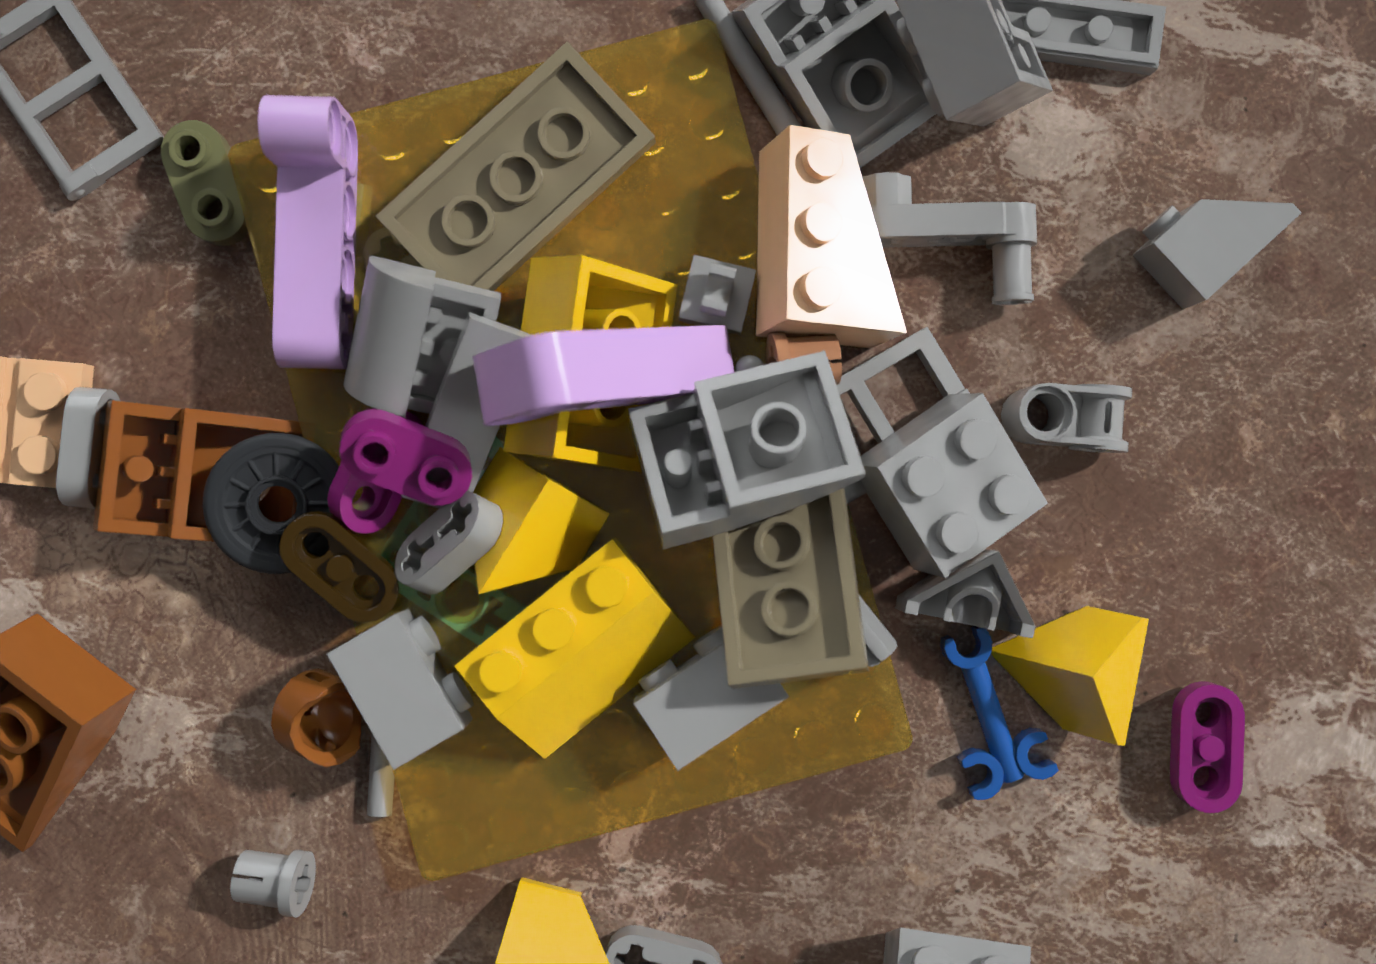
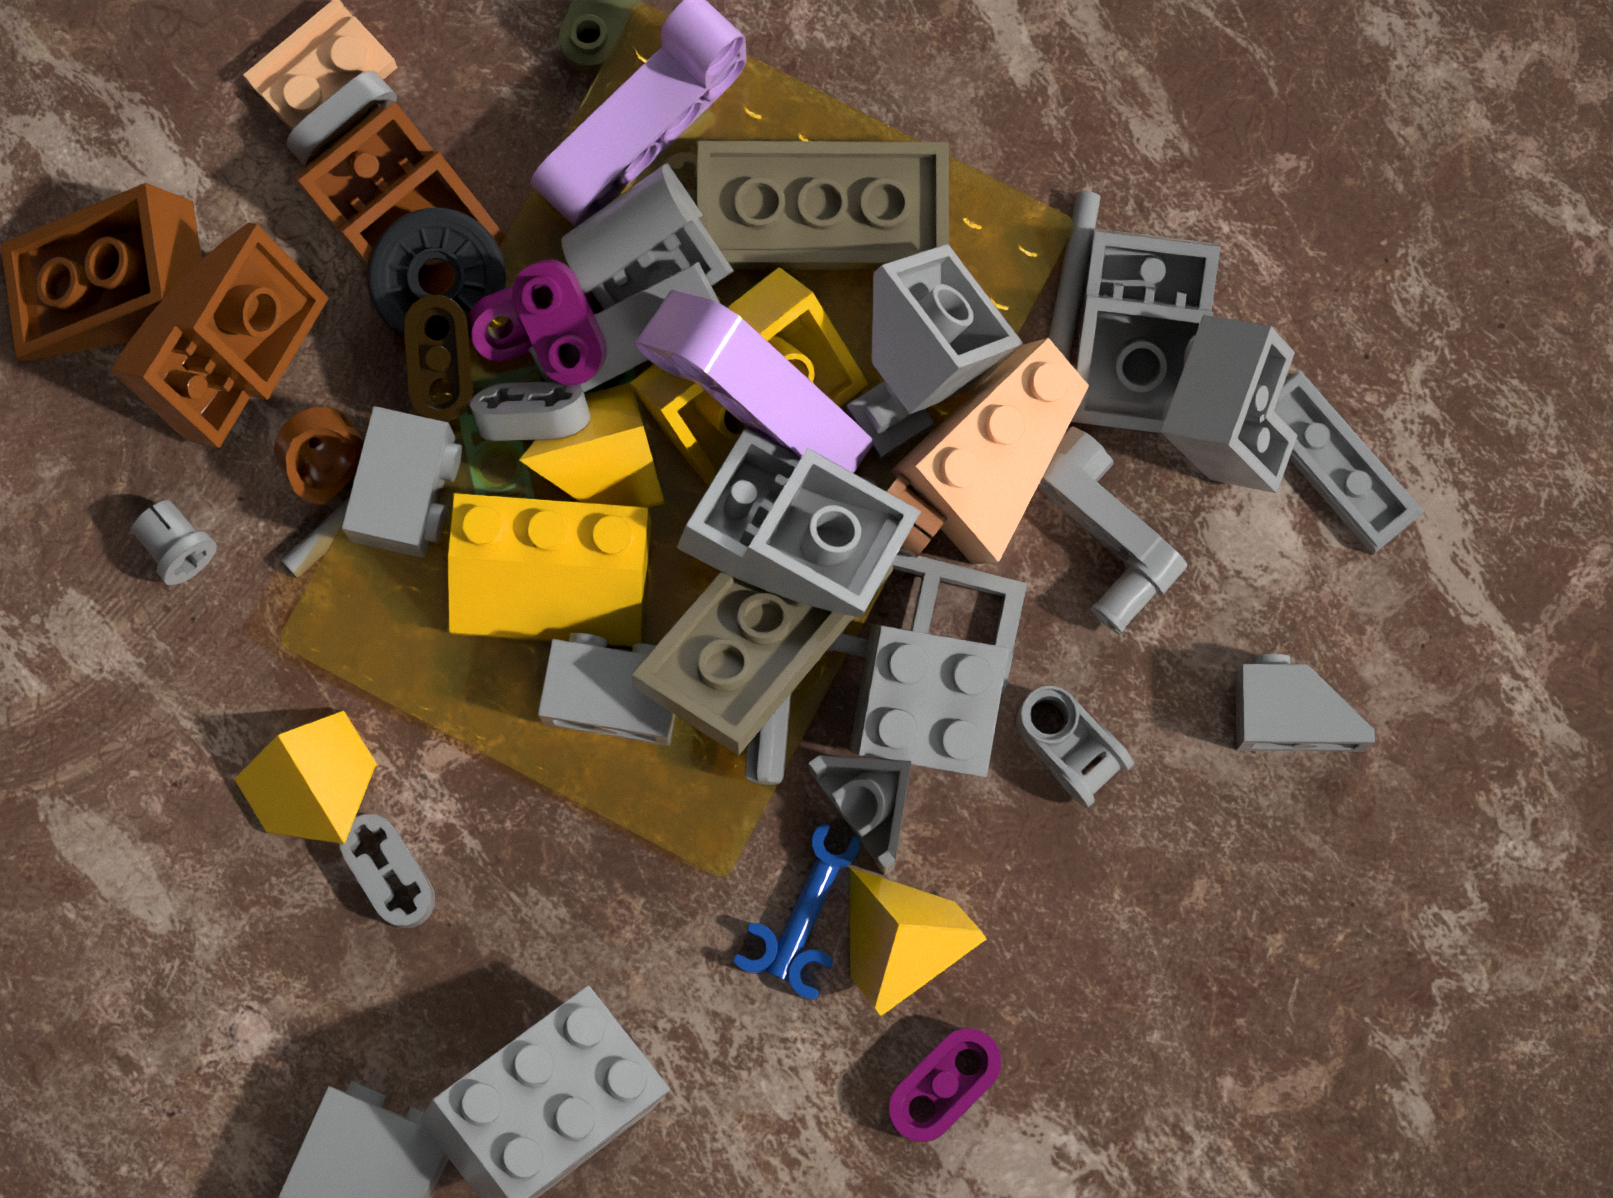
camera: 45 degrees right, 10 degrees down
(155, 701) = (221, 336): none -> dark orange slope
(699, 197) = (935, 329): none -> light grey slope

